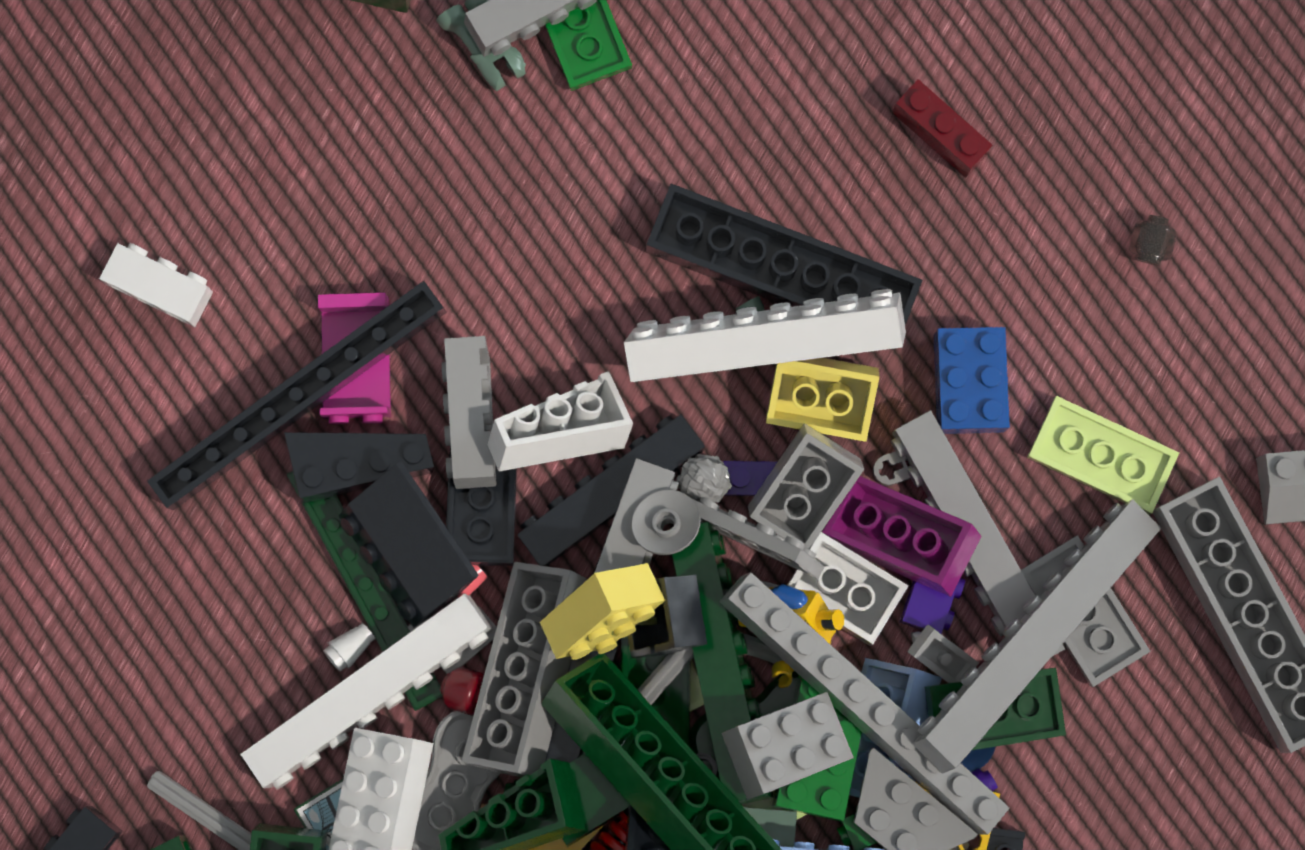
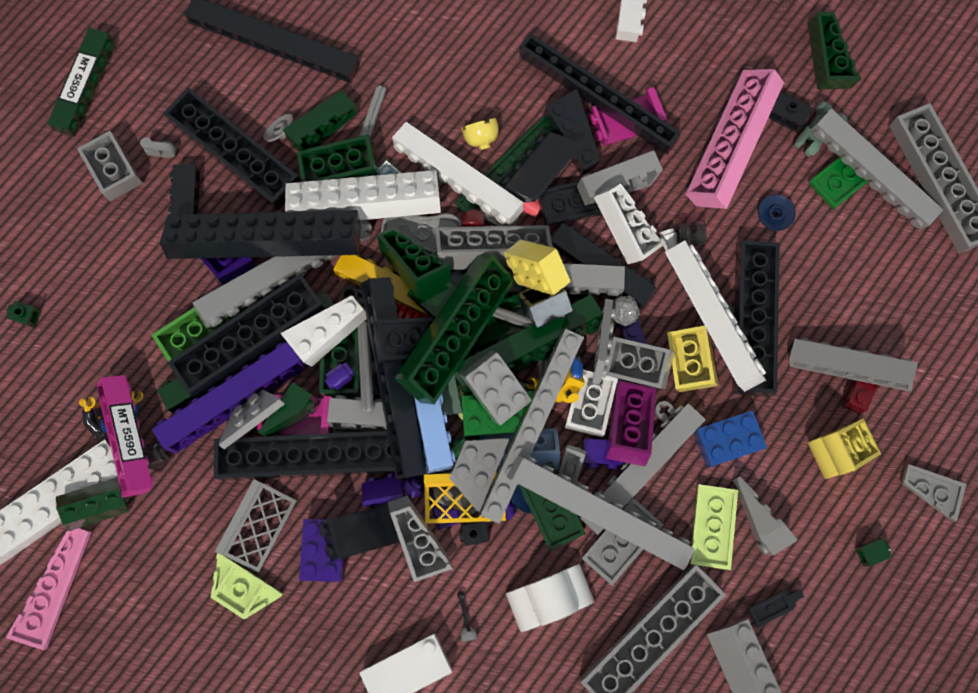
camera: 75 degrees right, 5 degrees down
(303, 624) = (481, 133): none -> light yellow cylinder
(348, 647) = (477, 159): white cone -> none
(434, 77) = (790, 112): none -> black brick
(458, 189) = (735, 138): none -> bright pink brick
(600, 360) = (670, 238): none -> white cone
(602, 334) = (691, 233): none -> clear smoke wheel
(609, 148) = (782, 207): none -> dark blue dish
(661, 509) = (599, 285): light grey dish -> none
(912, 141) = (853, 364): none -> light grey brick
(1043, 202) = (844, 449): none -> light yellow brick
(1135, 372) = (768, 532): none -> light grey wedge
(1143, 758) = (550, 598): none -> white brick
(1146, 81) = (936, 490): none -> light grey wing
(1153, 240) = (846, 519): clear smoke head -> none
(1215, 216) = (873, 552): none -> dark green brick
(1254, 402) = (774, 606): none -> black hinge

